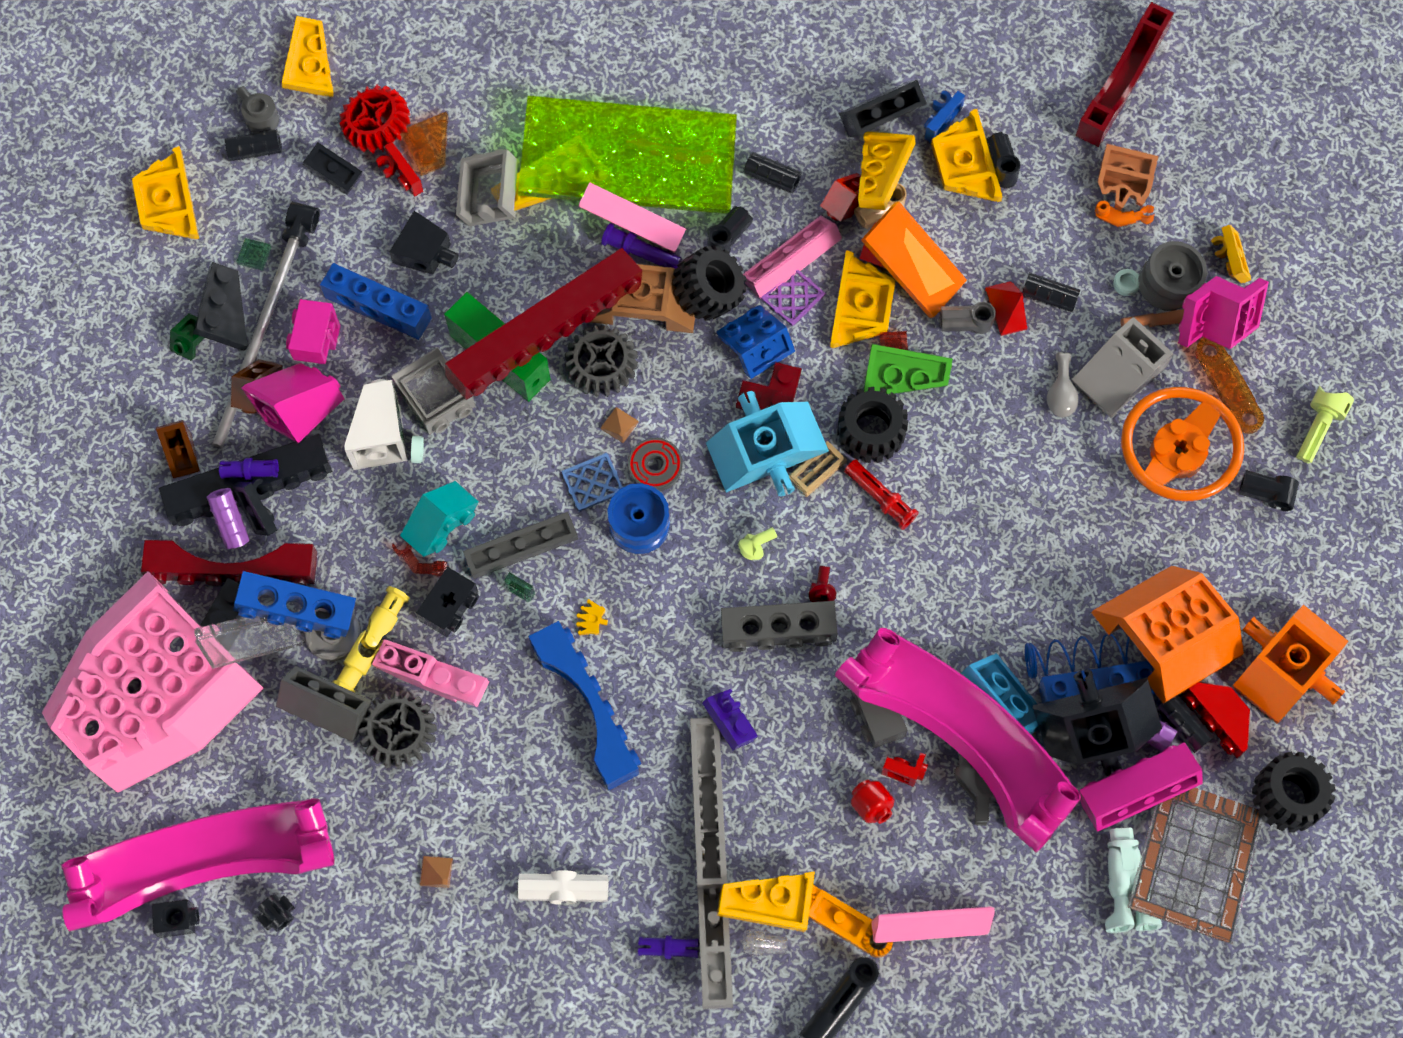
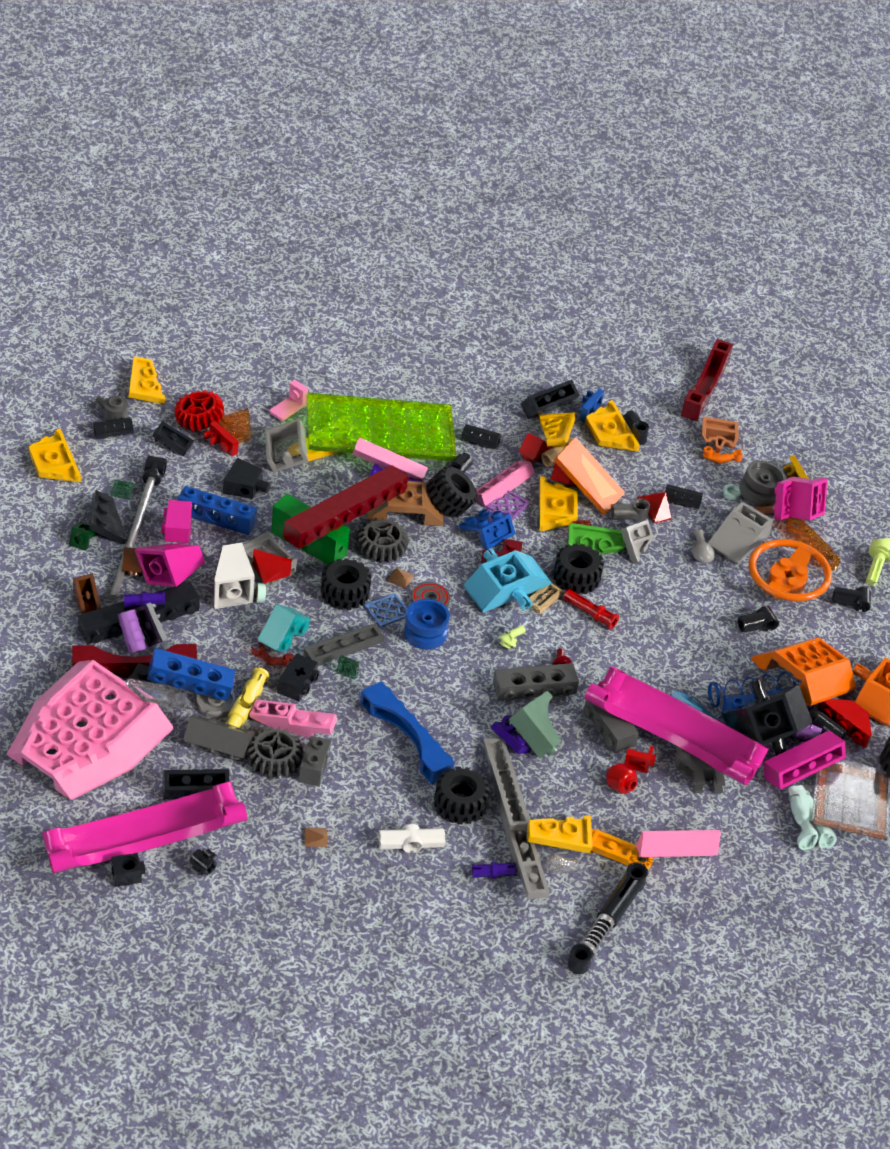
camera: 15 degrees left, 25 degrees down
(281, 784) = (188, 782): none -> black brick
(430, 418) = (270, 566): none -> red slope
(449, 750) = (315, 761): none -> dark grey brick
(507, 106) = (291, 404): none -> bright pink bracket
(543, 460) = (345, 583): none -> black tyre
(591, 619) = (401, 686): yellow piece -> none
(648, 845) = (458, 807): none -> black tyre
(761, 708) = (535, 726): none -> sand green arch
(967, 371) = (637, 539): none -> light grey wing
(1125, 525) = (762, 619): none -> black piece

